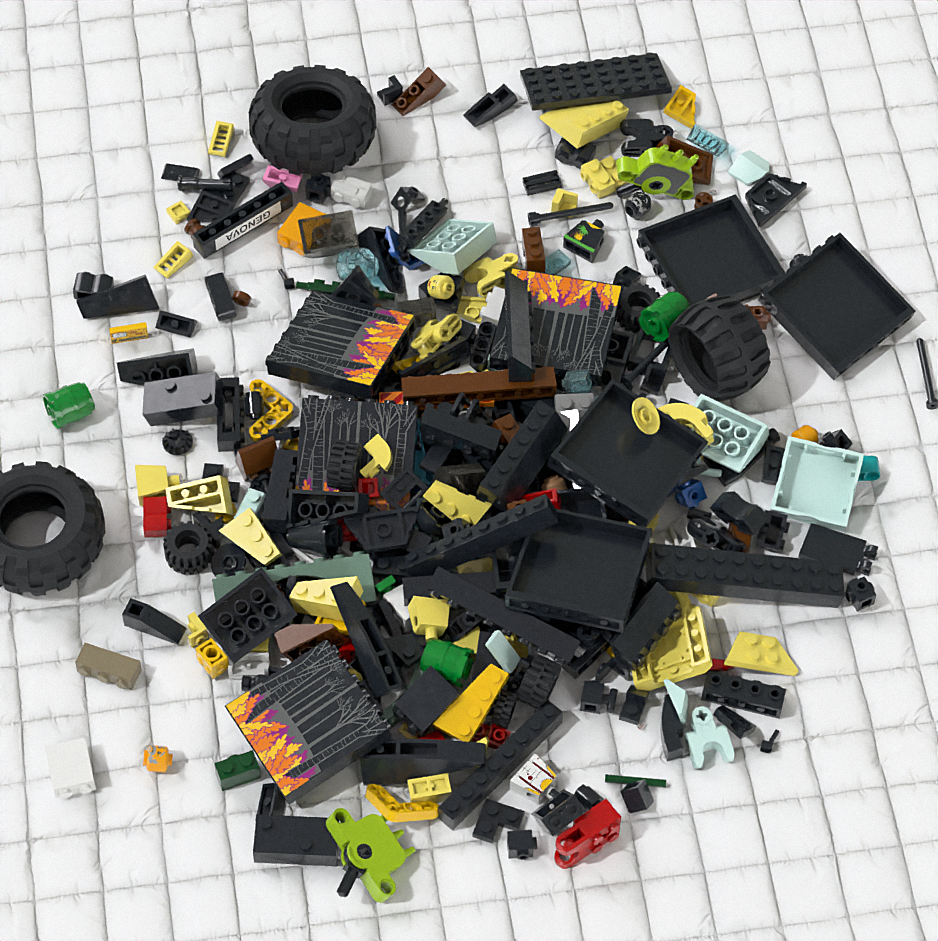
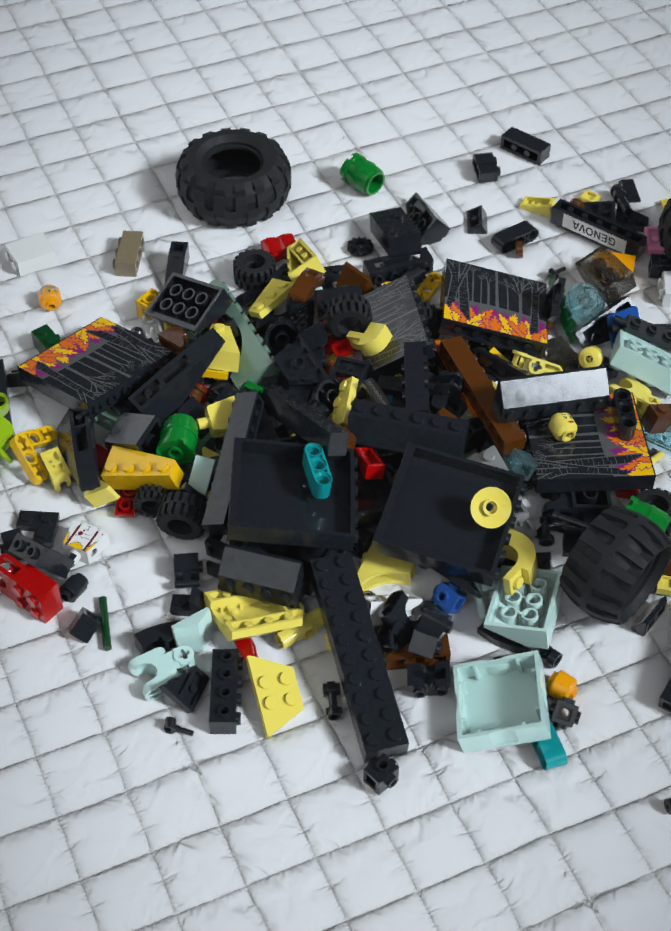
camera: 75 degrees right, 10 degrees down
(71, 239) = (525, 145): none -> black brick
(123, 298) = (479, 181): black wing -> none
(128, 332) = (451, 195): yellow tile -> none
(153, 481) = (313, 236): light yellow torso -> none
(236, 165) = (653, 214): black tile -> none
(269, 492) = (306, 284): none -> reddish brown slope
(500, 765) = (98, 513): black brick -> none
(548, 282) = (623, 414): none -> black beam
(551, 333) = (562, 427): none -> light yellow head
(569, 536) = (317, 470): none -> teal beam
(761, 612) = (332, 690): none -> black bar
(836, 546) = (434, 746): black tile -> none

